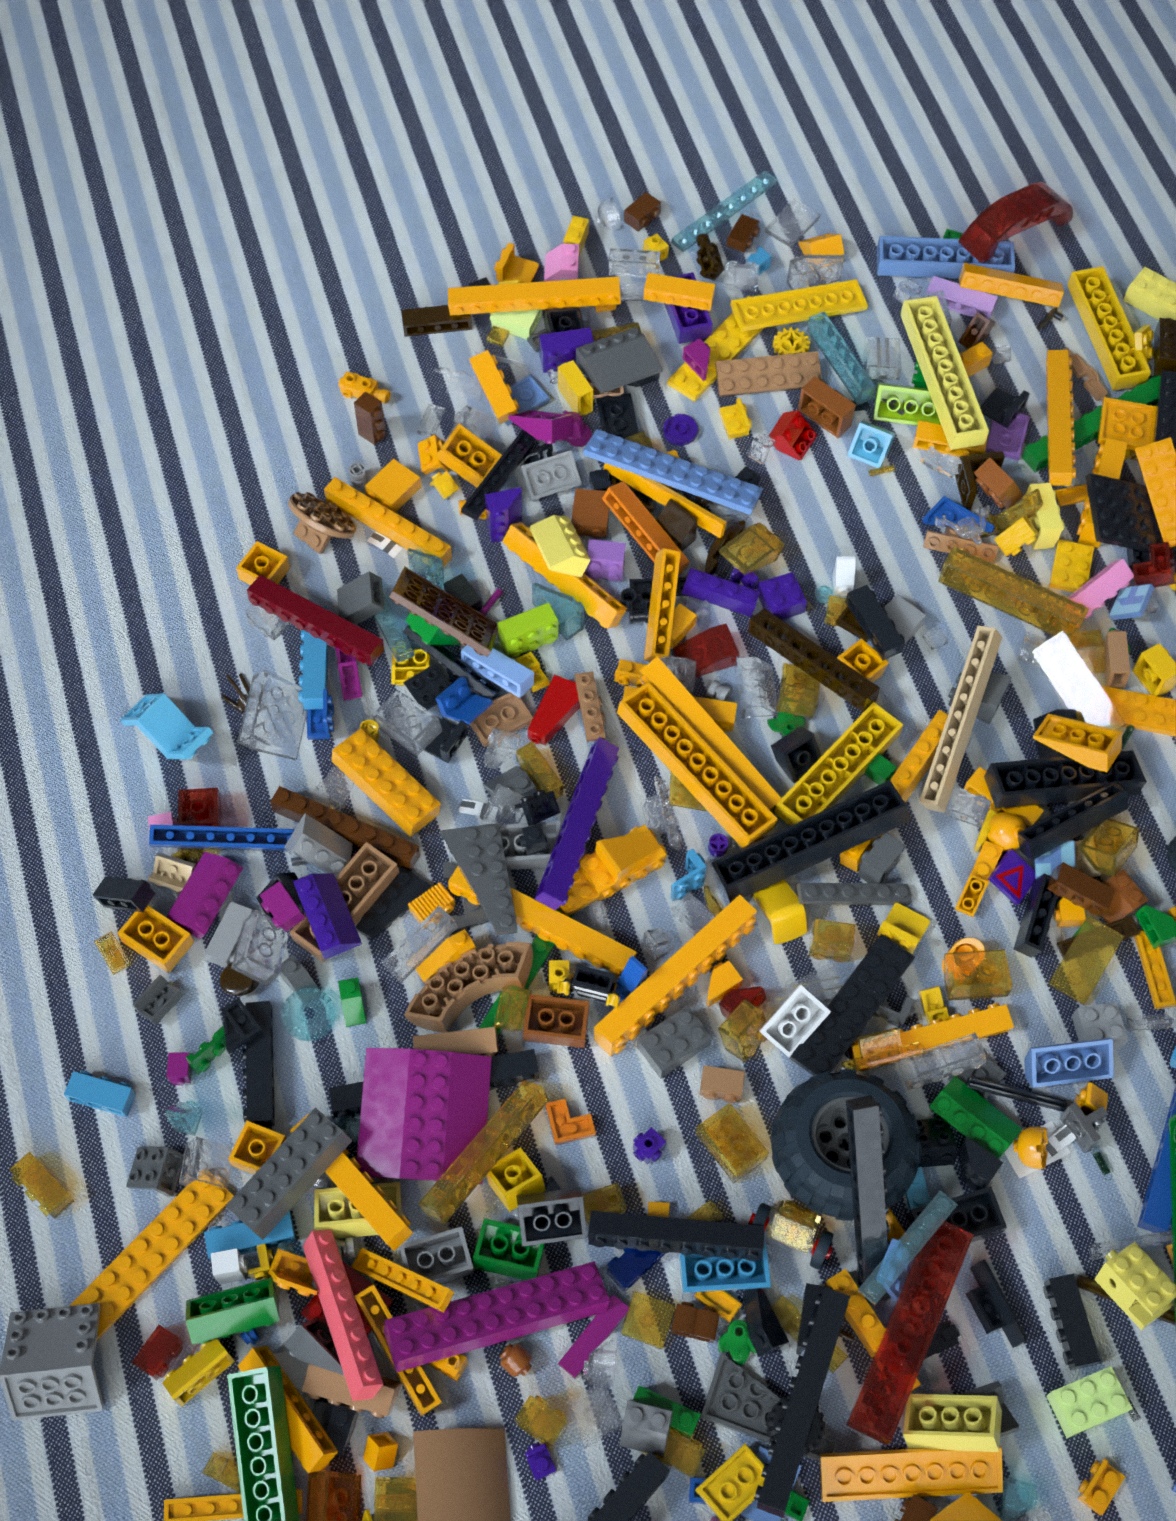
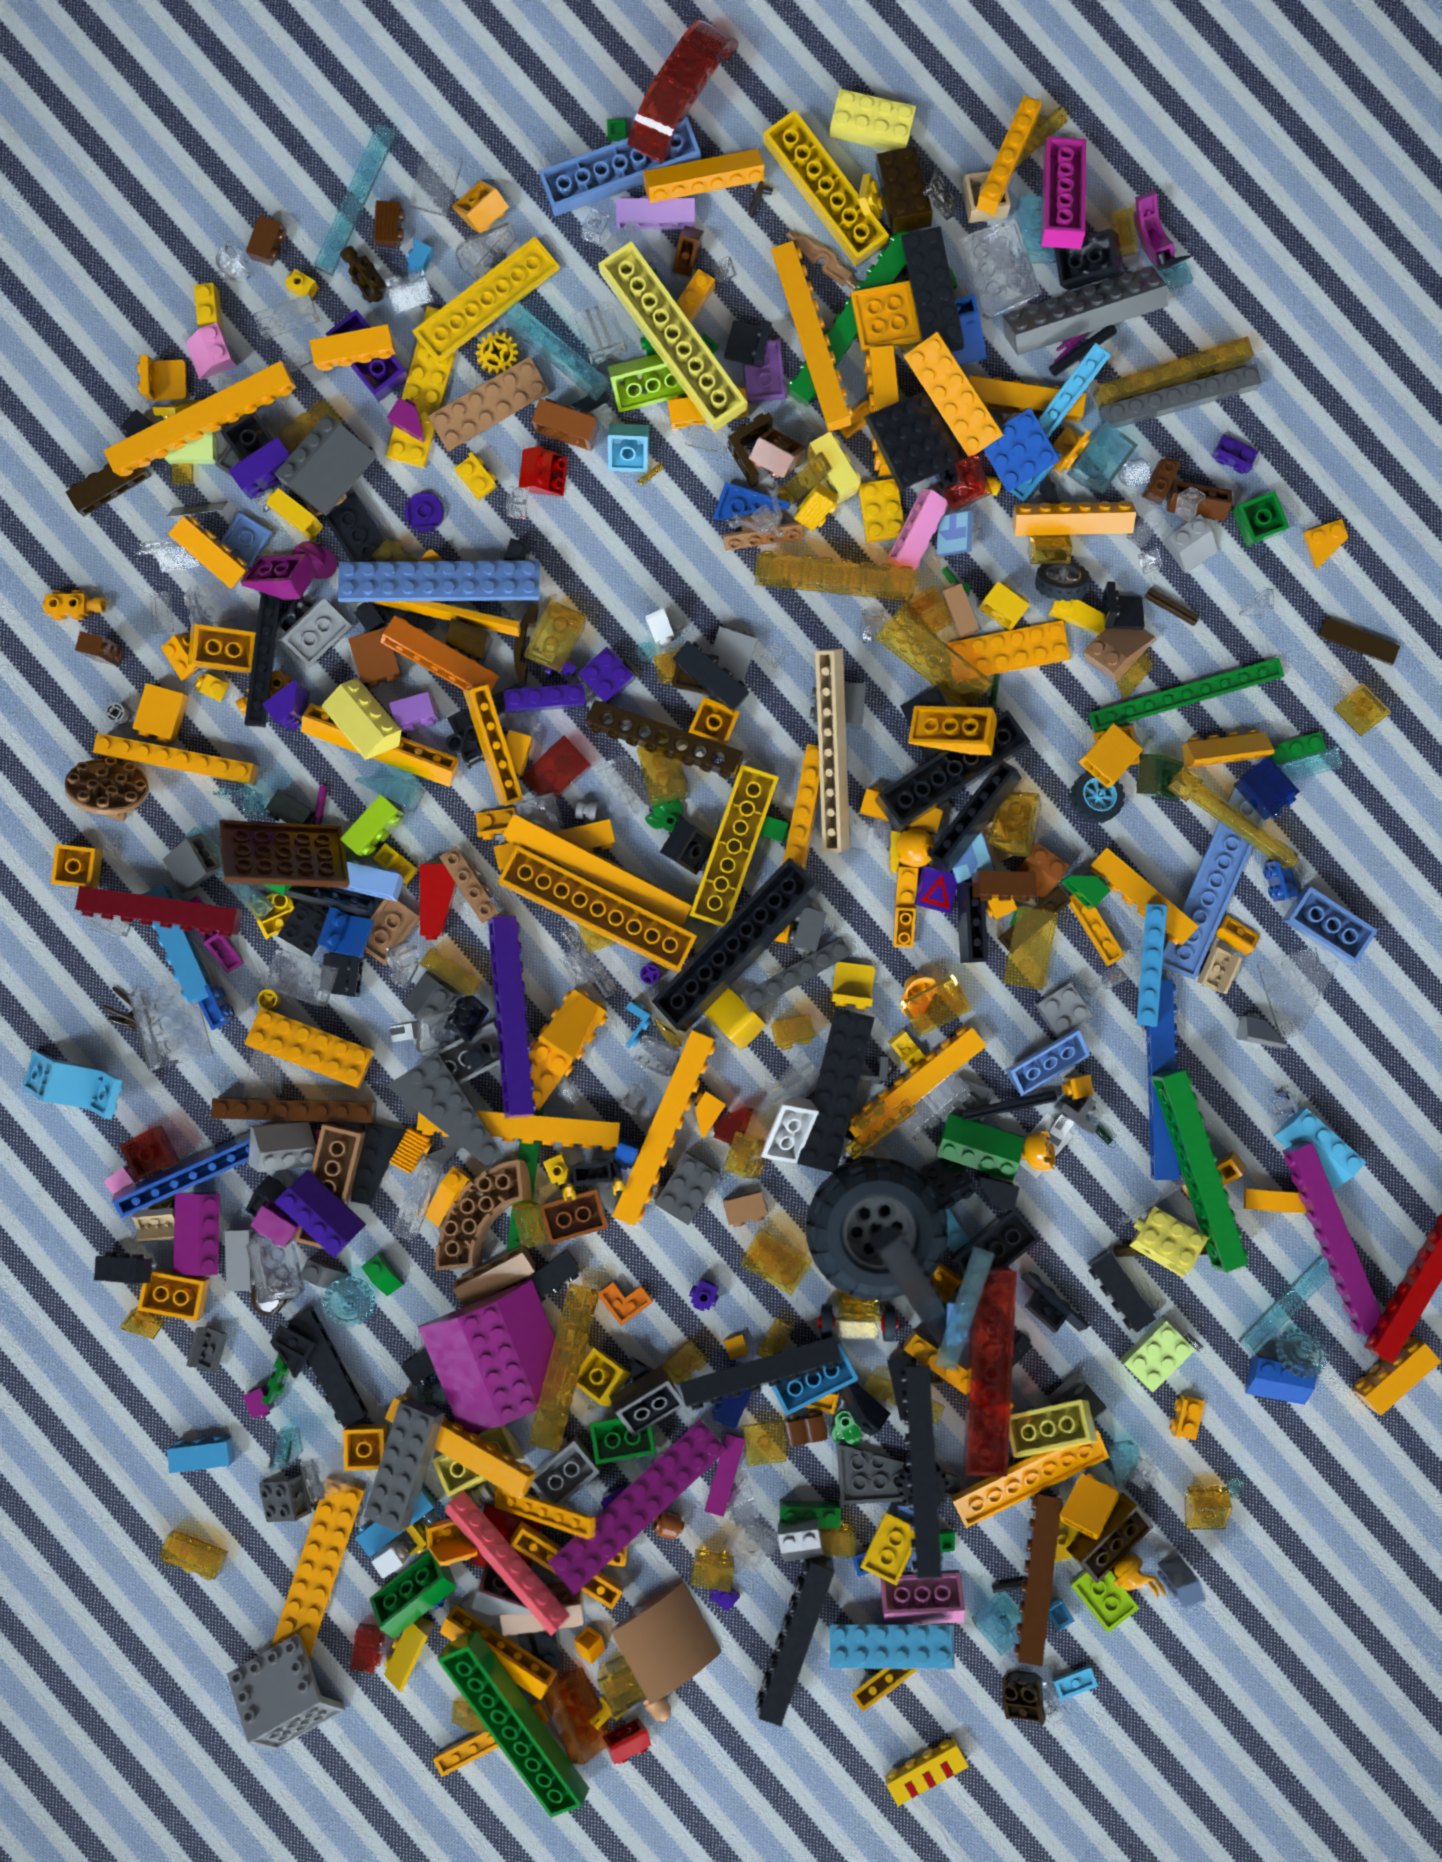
camera: 20 degrees left, 25 degrees up
(384, 544) = (183, 780): white sticker -> none

